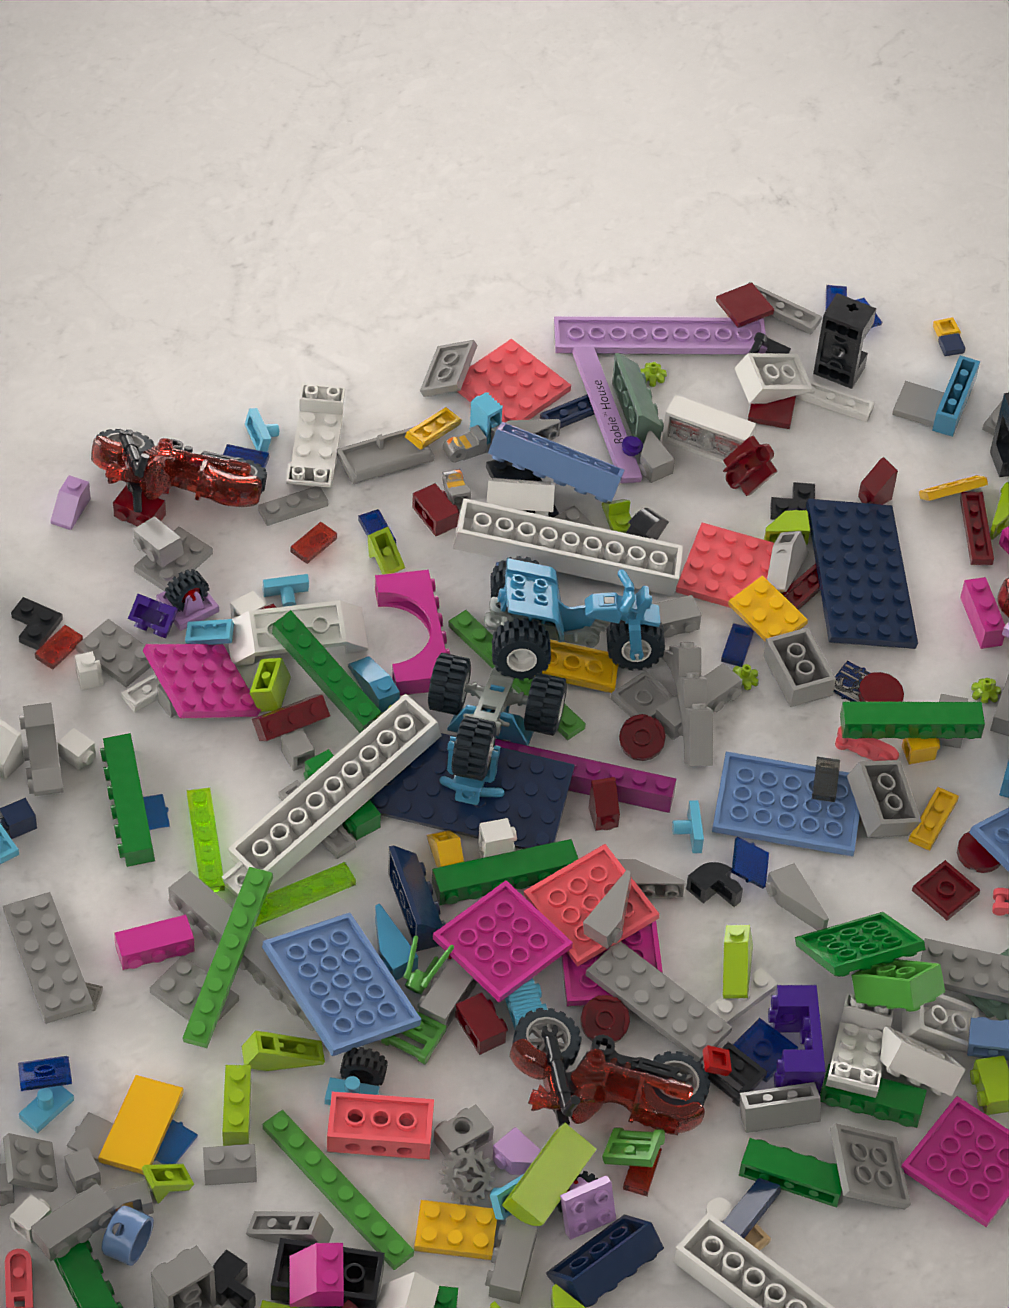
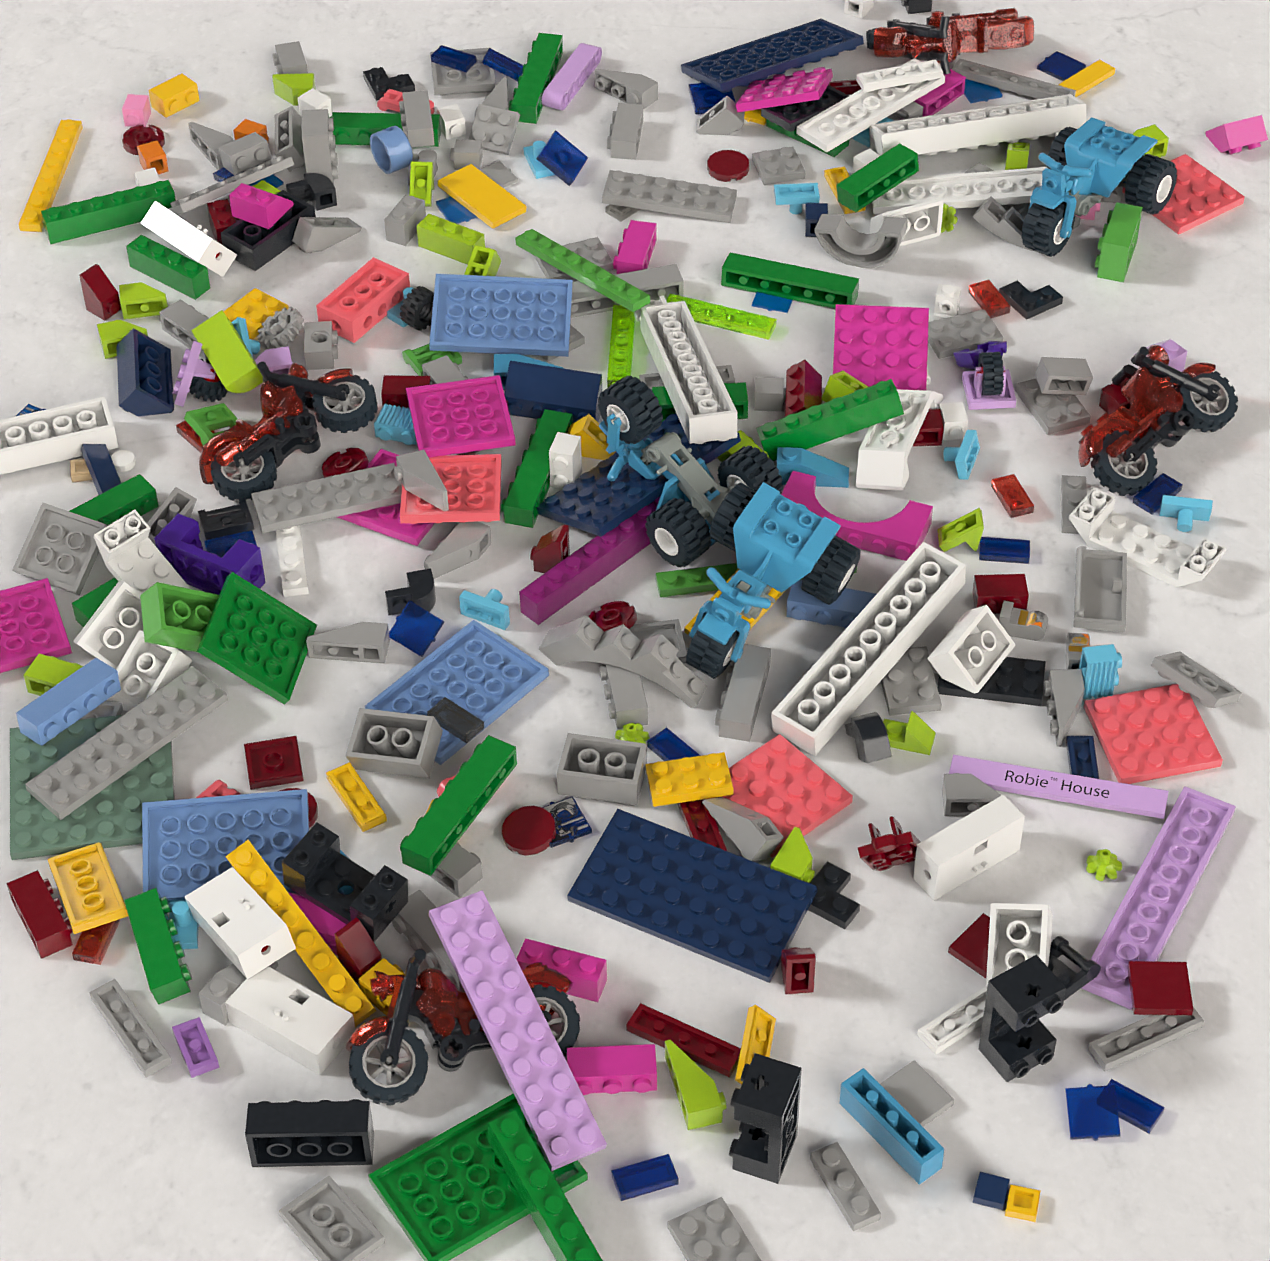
camera: 125 degrees right, 5 degrees down
(77, 749) = (867, 269): white brick -> none
(210, 632) = (935, 377): medium azure tile -> none
(338, 1189) = (332, 272): bright green plate -> none
(419, 980) = (477, 370): bright green plant -> none
(433, 428) = (1113, 631): yellow tile -> none
(556, 462) = (991, 685): medium blue brick -> none
(632, 446) = (993, 777): dark purple plate -> none
(635, 398) = (1063, 809): sand green slope -> none
(717, 1060) = (237, 498): red plate -> none
(737, 961) = (323, 564): lime slope -> none

